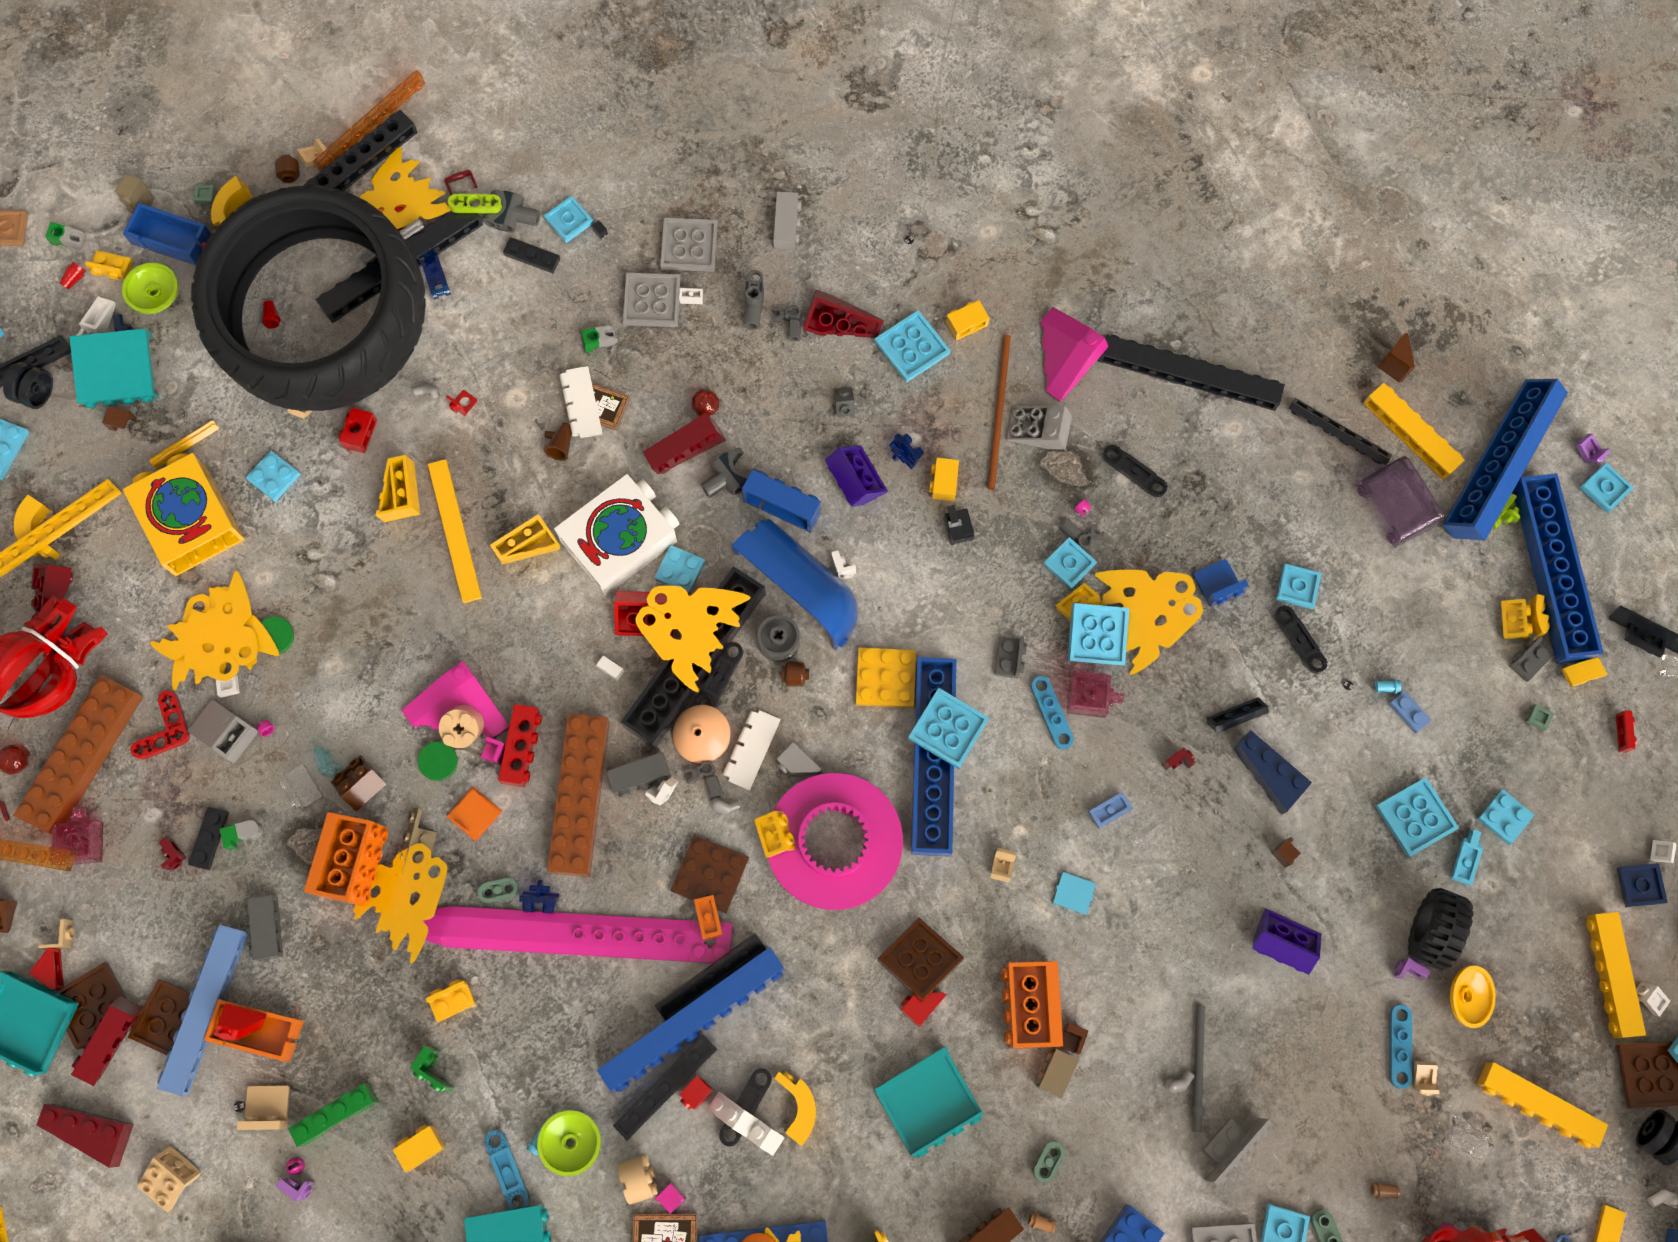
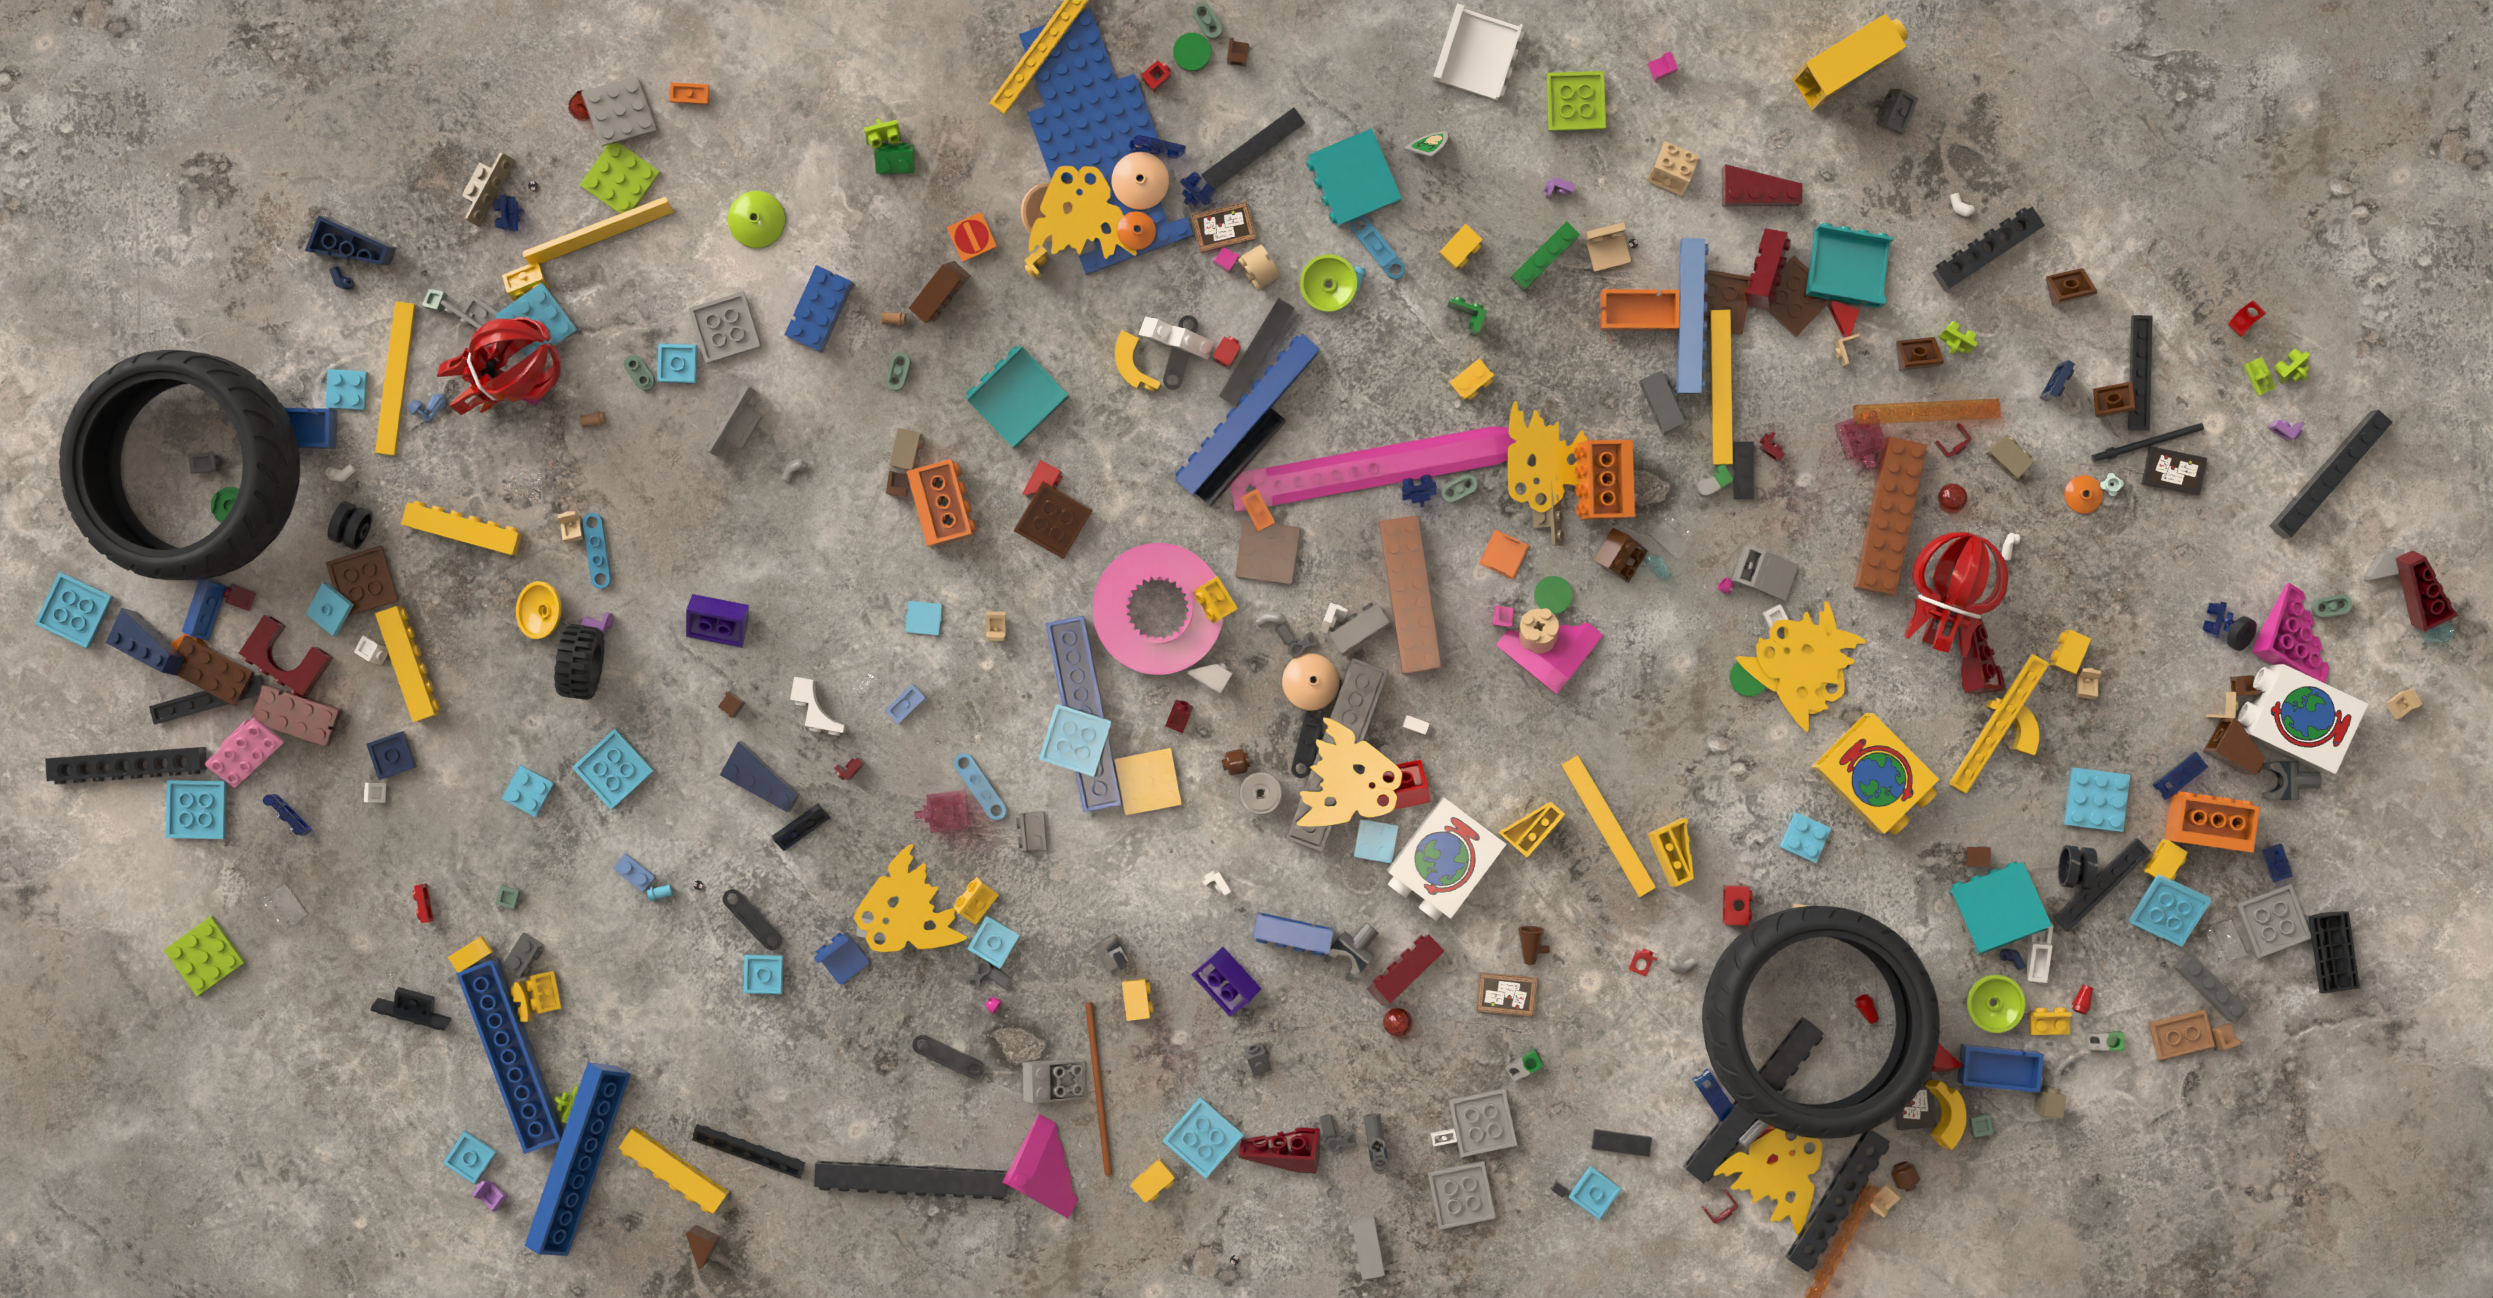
camera: 170 degrees right, 15 degrees up
(171, 729) = (1814, 563): red beam -> none
(183, 444) = (1904, 848): yellow axle -> none
(199, 929) = (1721, 386): none -> yellow tile
(238, 1022) = (1654, 311): red slope -> none
(296, 1170) = (1569, 209): dark pink hinge -> none
(461, 208) = (1681, 1188): lime beam -> none
(511, 212) = (1656, 1184): dark grey connector -> none
(520, 715) = (1481, 597): red brick -> none
(582, 400) = (1521, 995): white windscreen -> none
(751, 755) = (1256, 683): white windscreen -> none
(801, 578) = (1253, 856): blue panel -> none
(839, 732) = (1179, 715): none -> dark red bracket
(904, 452) = (1184, 1018): clear blue hips -> none
(1098, 634) = (951, 873): medium azure plate -> none
(1197, 1109) = (772, 448): dark grey bar -> none
(1202, 816) = (805, 692): none -> white arch
(1402, 500) = (677, 1087): clear purple windscreen -> none
(1467, 859) = (559, 740): medium azure hinge -> none

